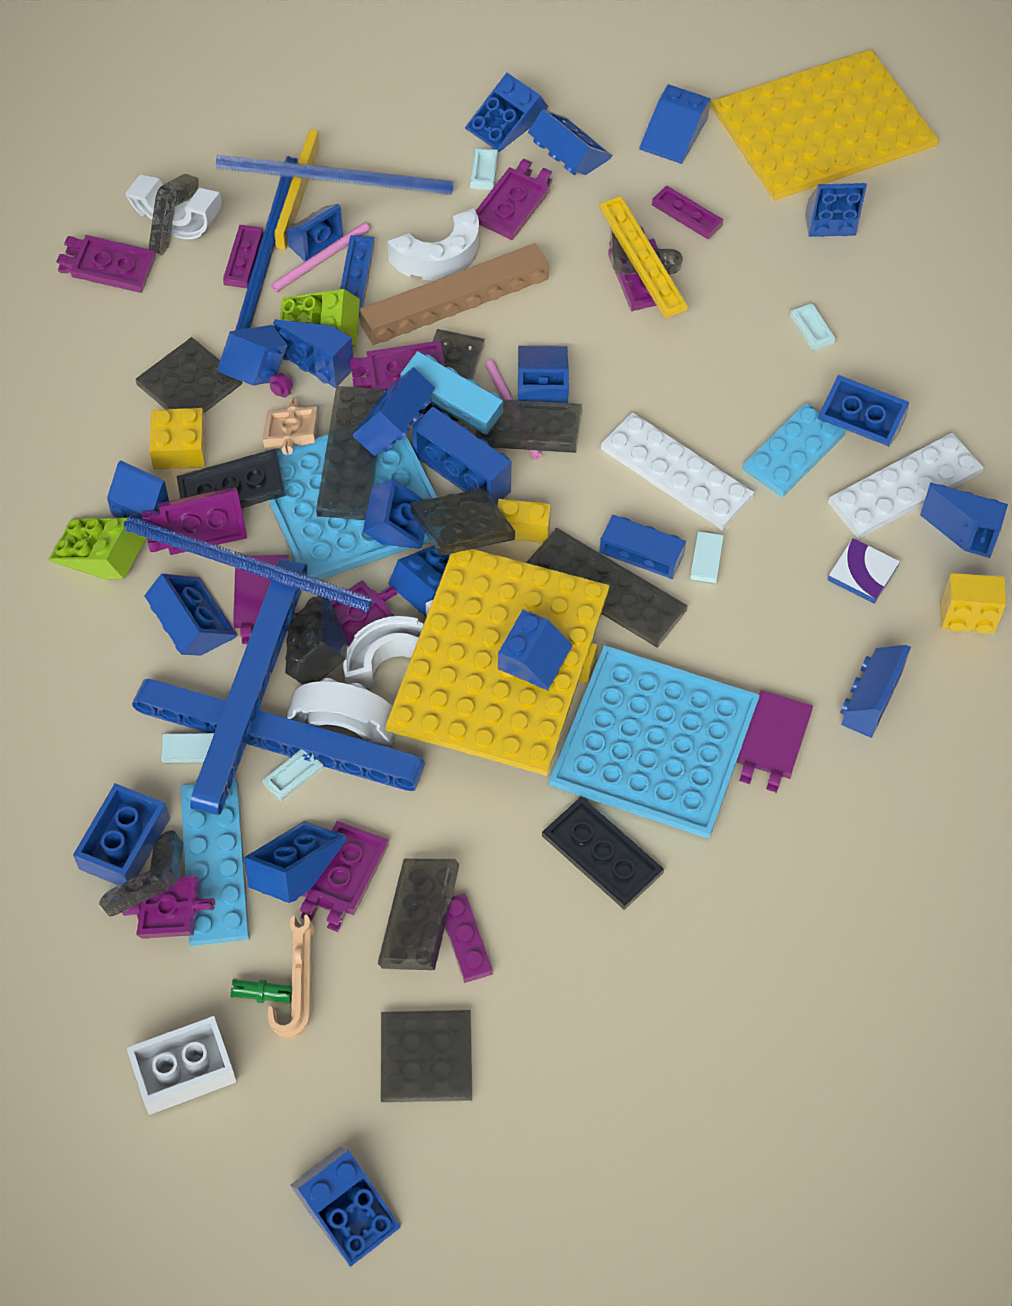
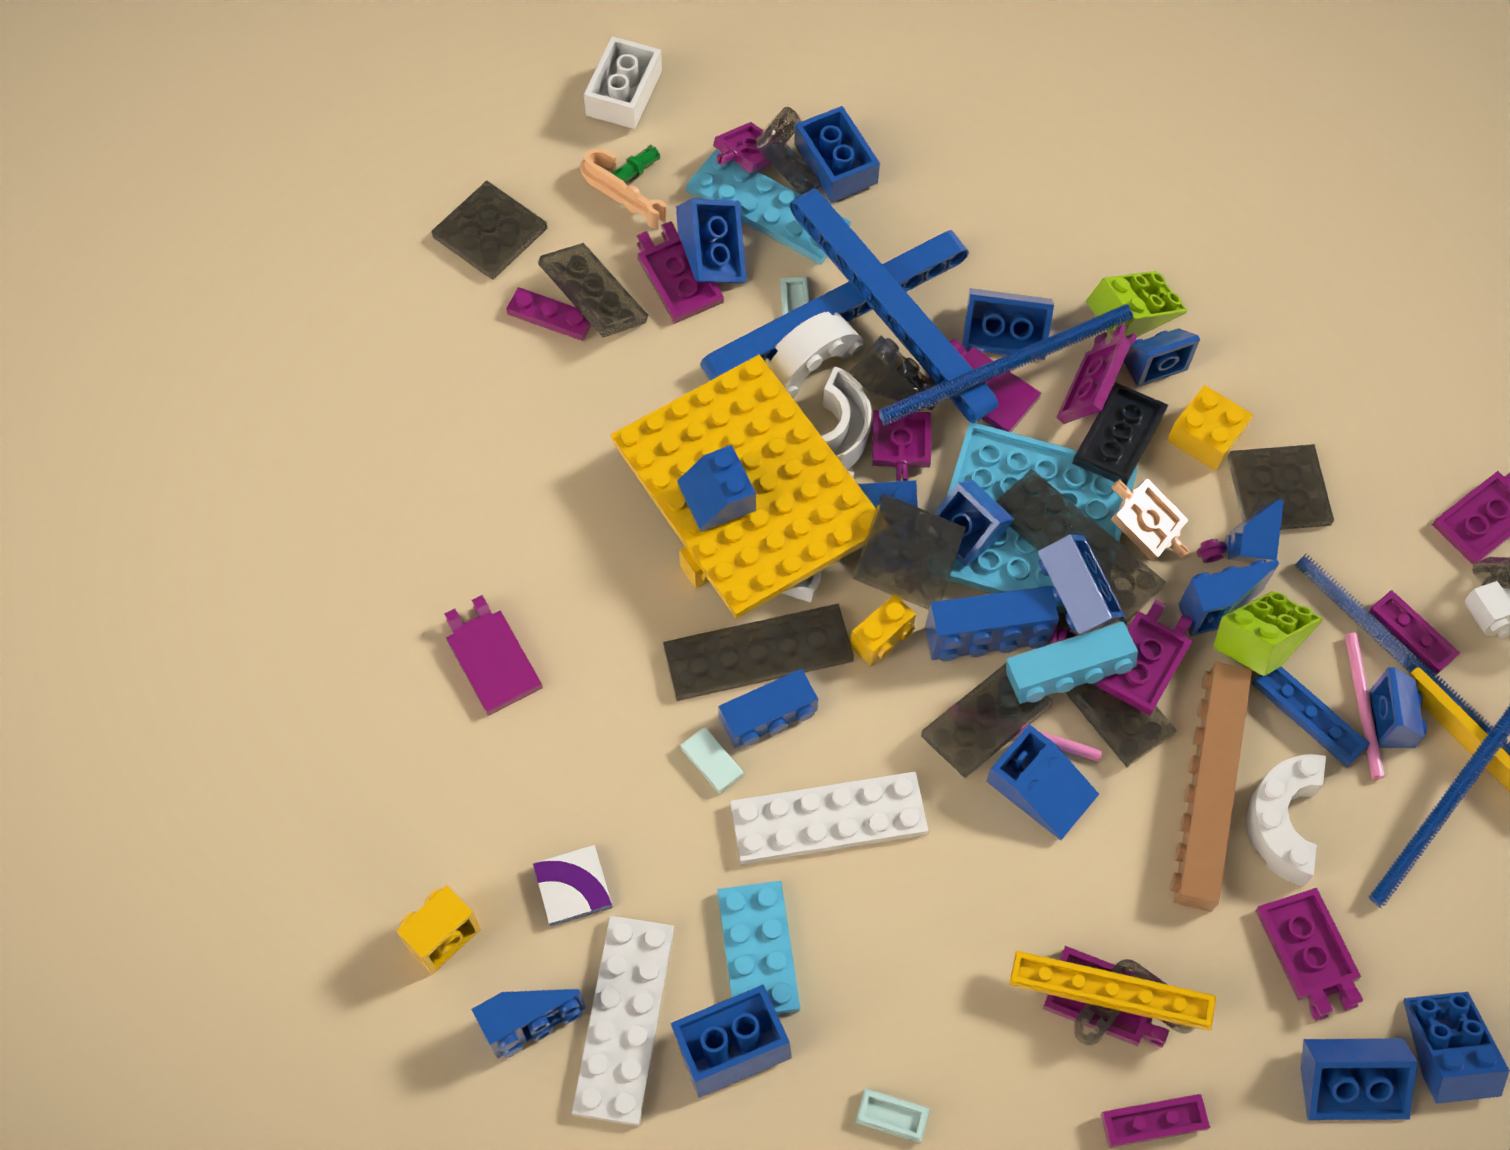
camera: 130 degrees right, 5 degrees up
(185, 747) = (887, 244): light aqua tile -> none
(345, 1205) = (441, 113): blue slope -> none
(484, 169) = (1384, 960): light aqua tile -> none
(602, 853) = (523, 453): black tile -> none
(655, 741) = (576, 565): medium azure plate -> none
(874, 689) = (448, 766): blue slope -> none

